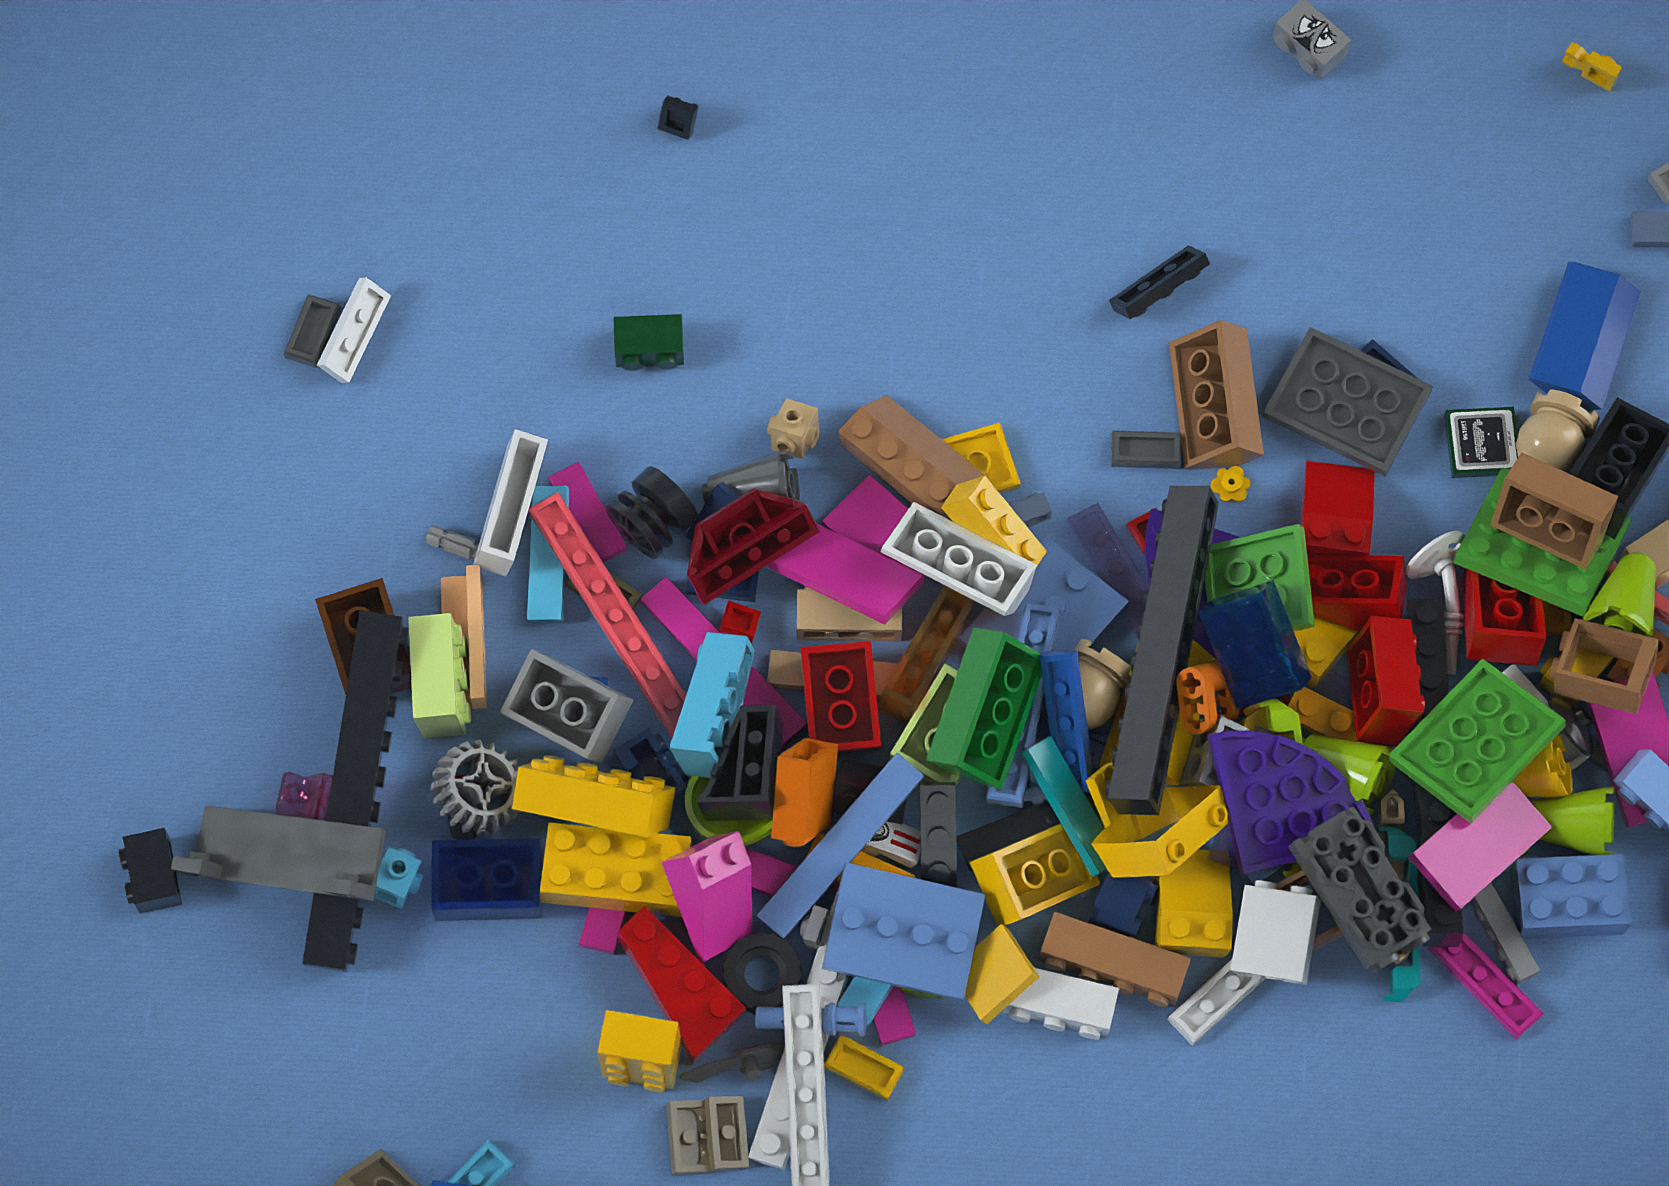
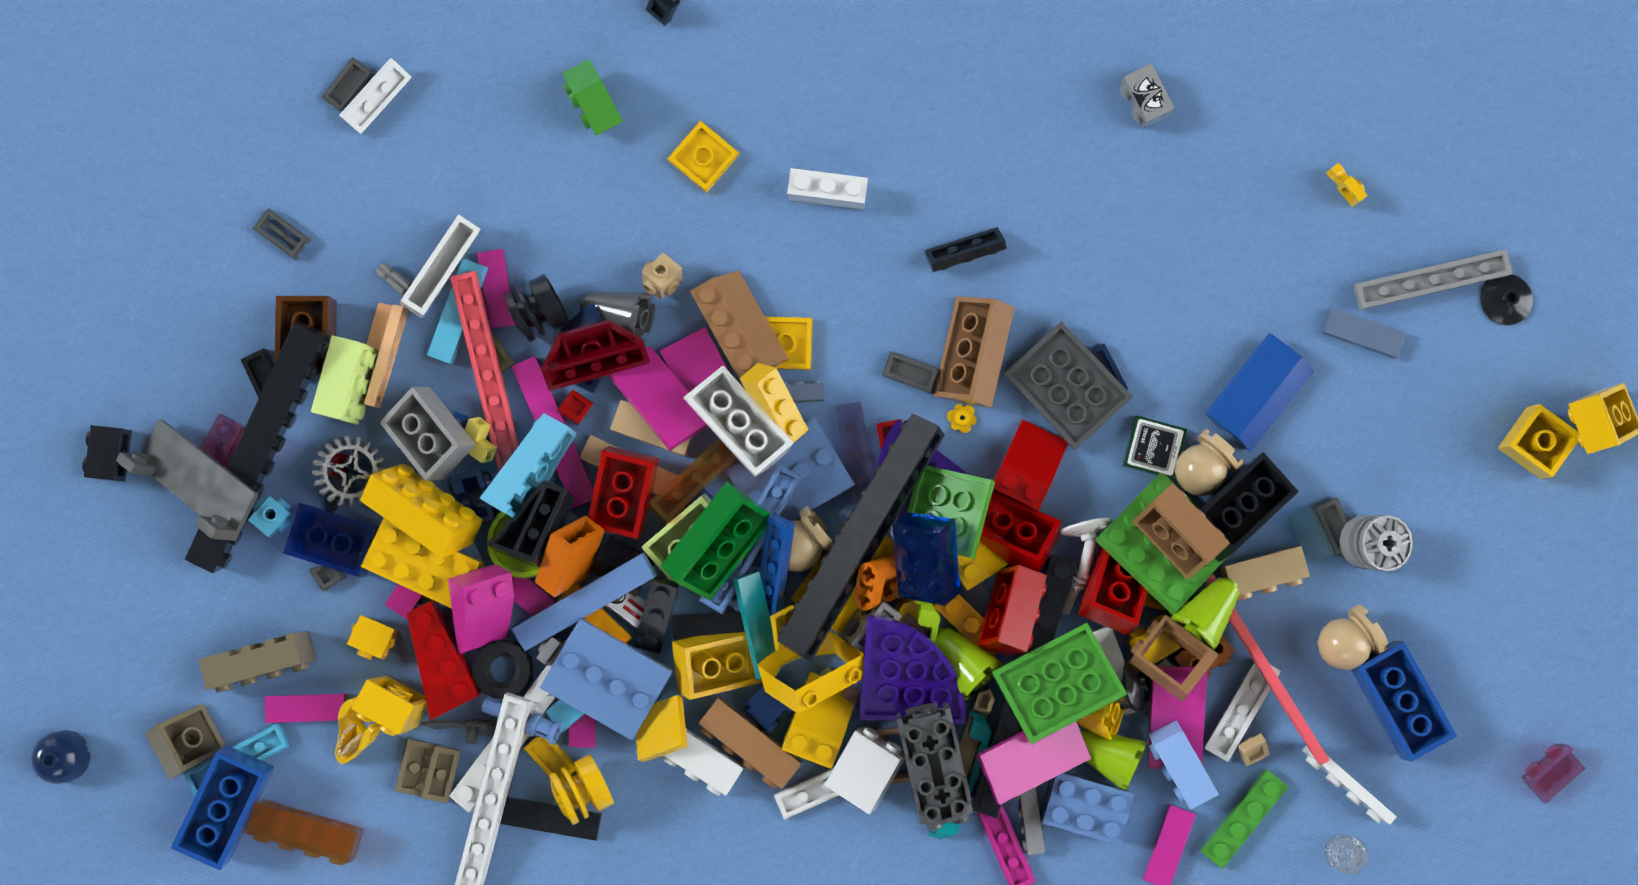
camera: 20 degrees right, 15 degrees up
(314, 543) = (298, 246): none -> dark grey tile
(318, 711) = (258, 368): none -> black tile
(439, 1064) = (257, 660): none -> dark tan wedge
(490, 934) = (327, 577): none -> dark grey tile
(519, 1109) = (303, 707): none -> dark pink tile
(579, 987) = (372, 638): none -> yellow head
(596, 1113) = (353, 734): none -> yellow animal
(631, 242) = (590, 94): none -> bright green brick
(642, 708) = (478, 430): none -> light yellow piece
(648, 341) = (581, 174): dark green brick -> none
(792, 277) = (703, 156): none -> yellow tile
(893, 1143) = (549, 819): none -> black tile
(921, 1080) = (581, 789): none -> yellow wheel
(962, 263) = (827, 188): none -> white brick

